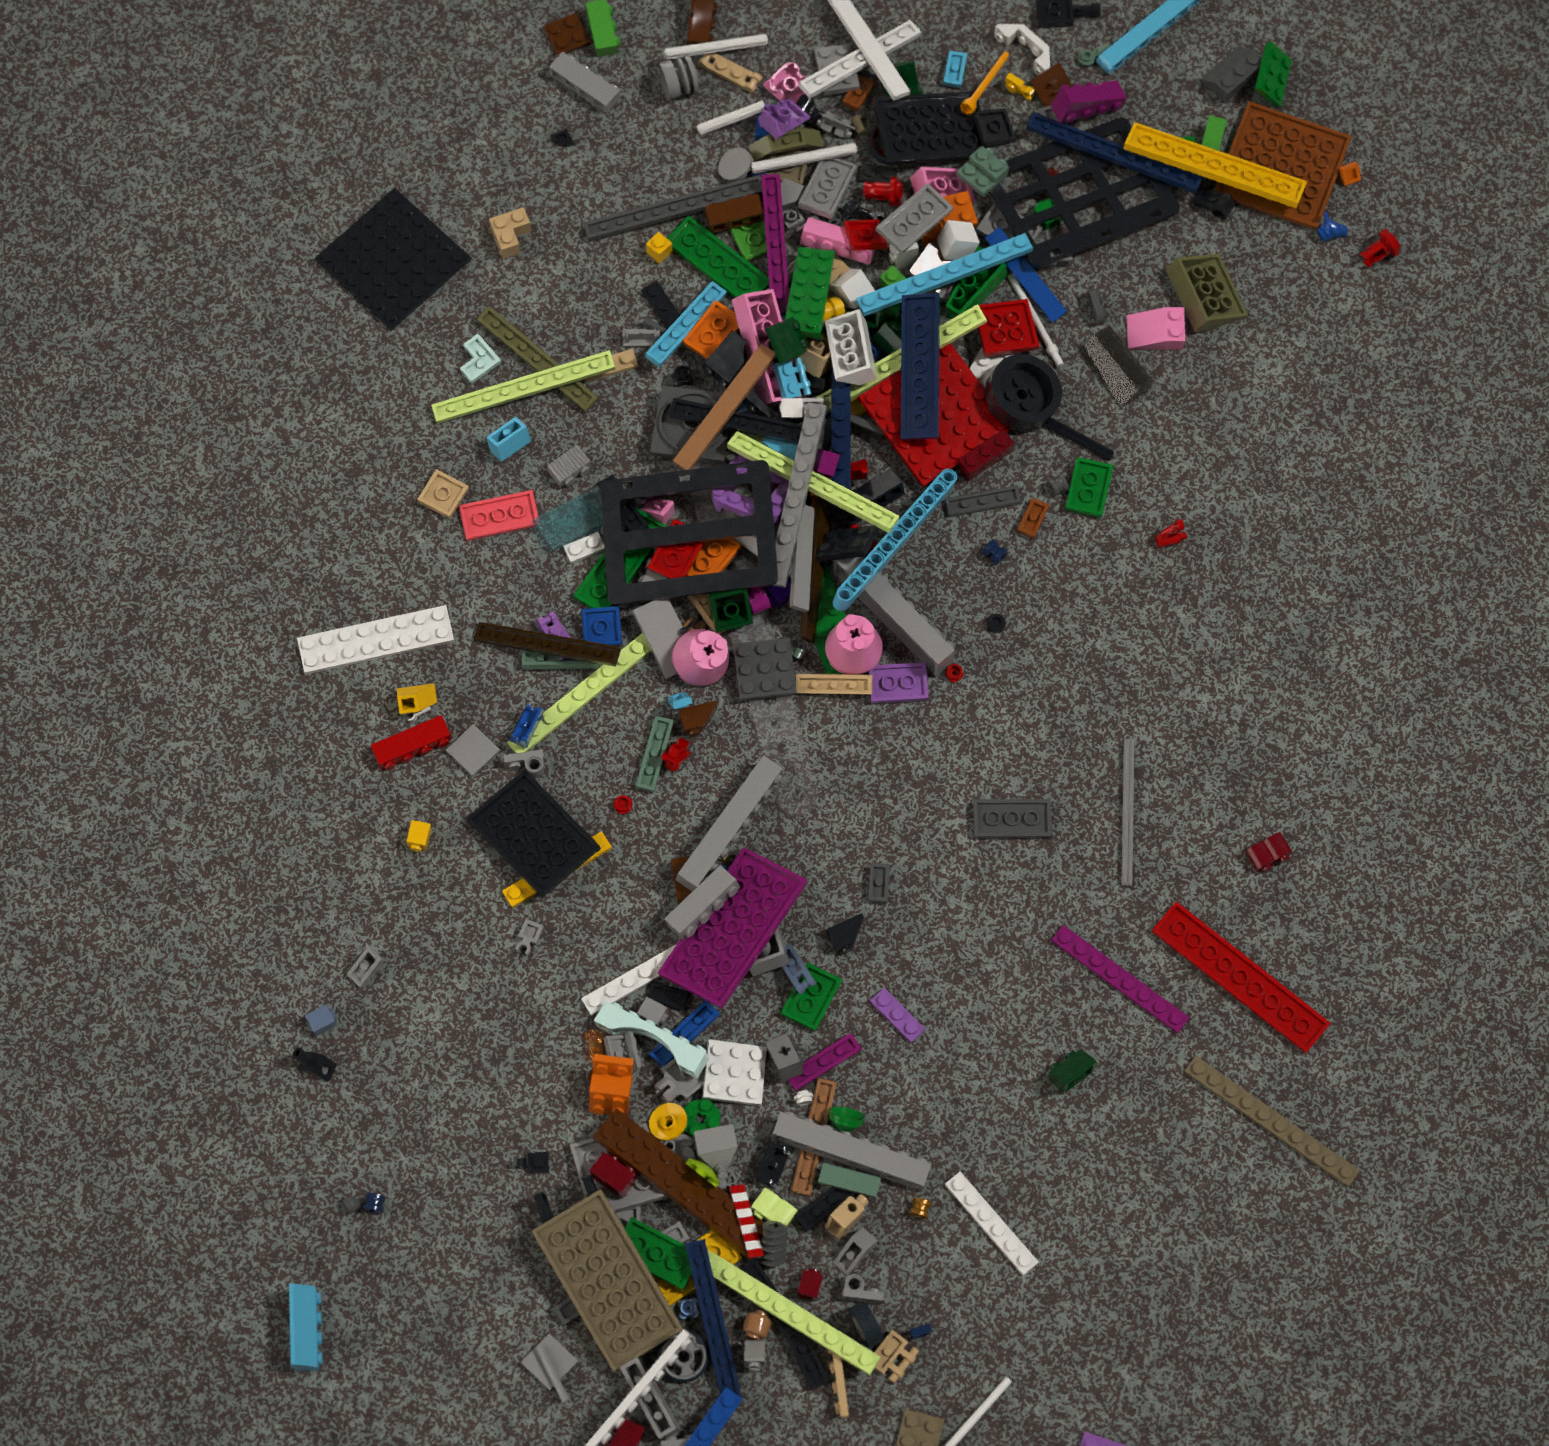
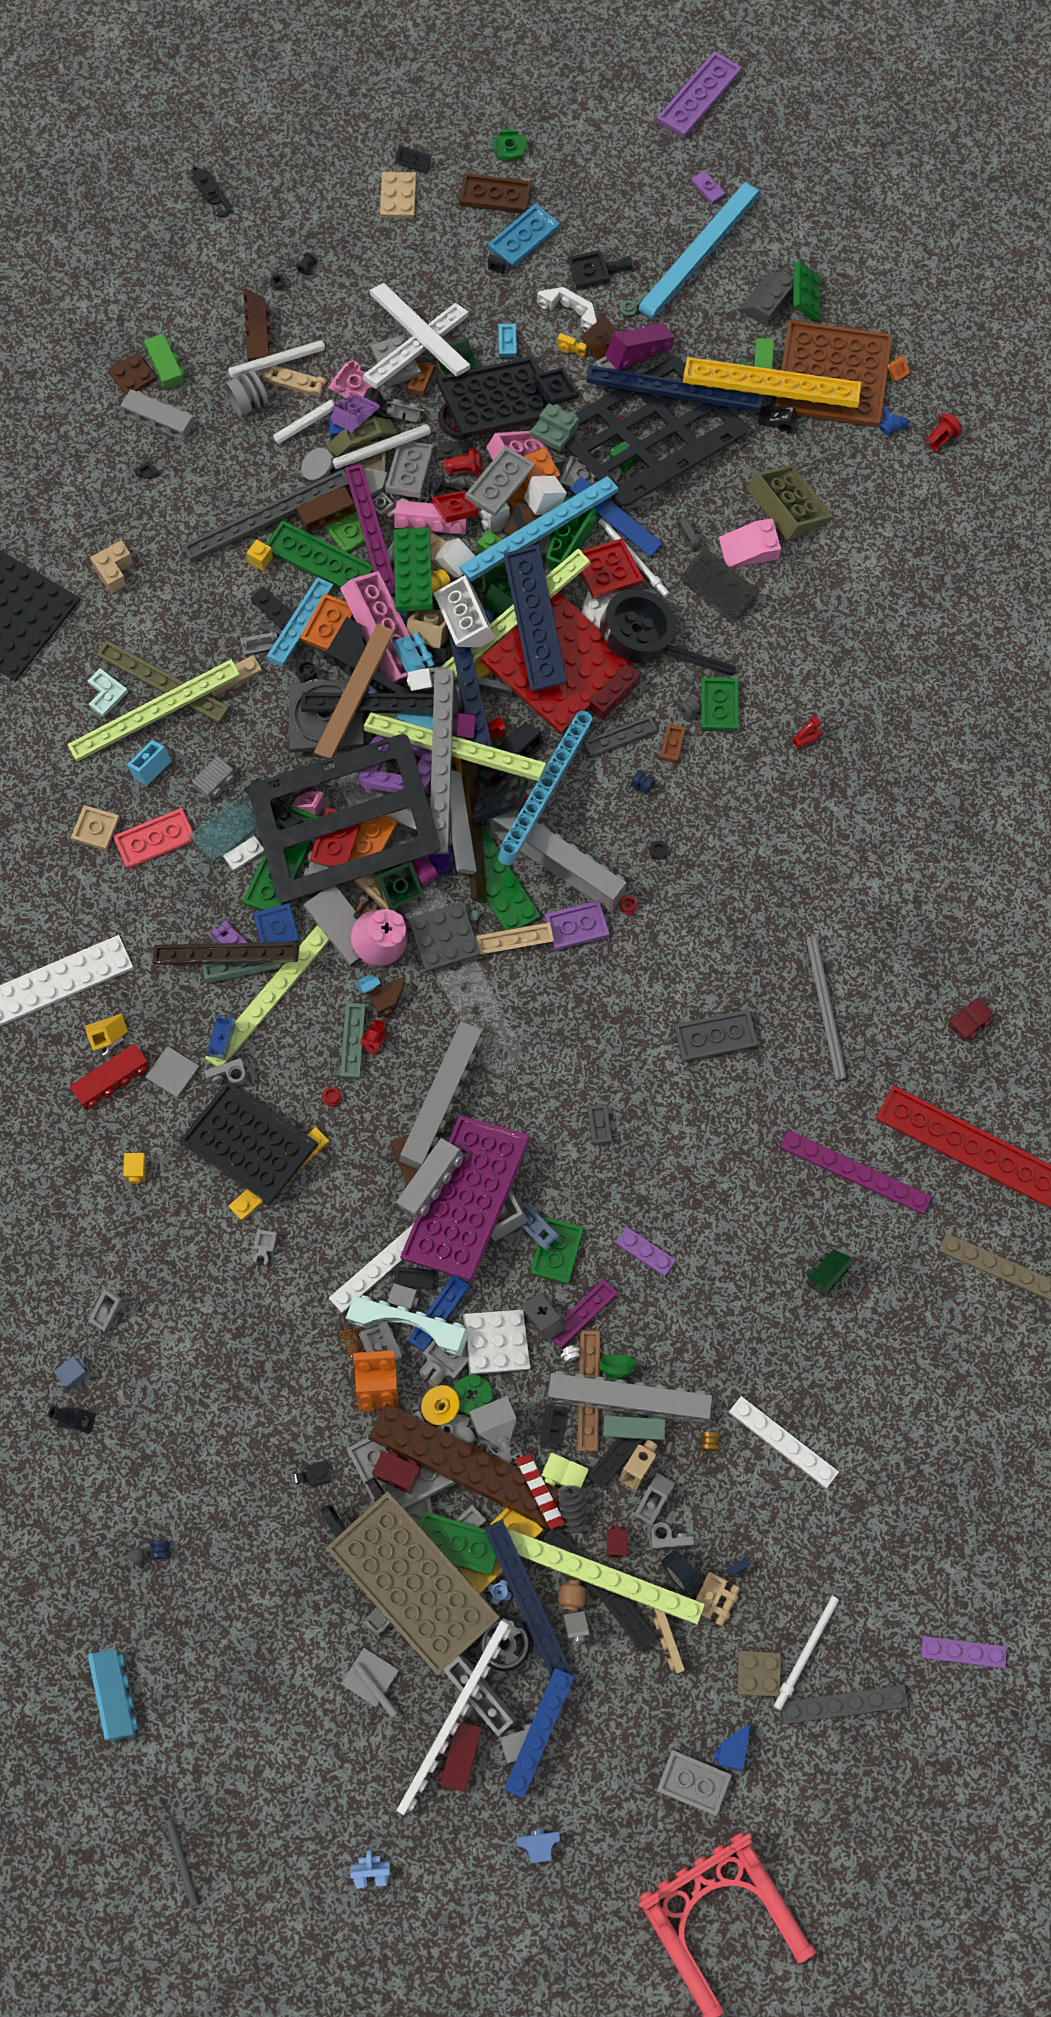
camera: 10 degrees left, 0 degrees up
(704, 1170) = (487, 1449): lime dish -> none
(787, 339) = (402, 615): dark green slope -> none
(844, 935) = (576, 1182): black slope -> none
(853, 646) = (526, 897): bright pink cone -> none
(862, 124) = (430, 406): dark tan plate -> none
(969, 105) = (528, 369): light orange piece -> none

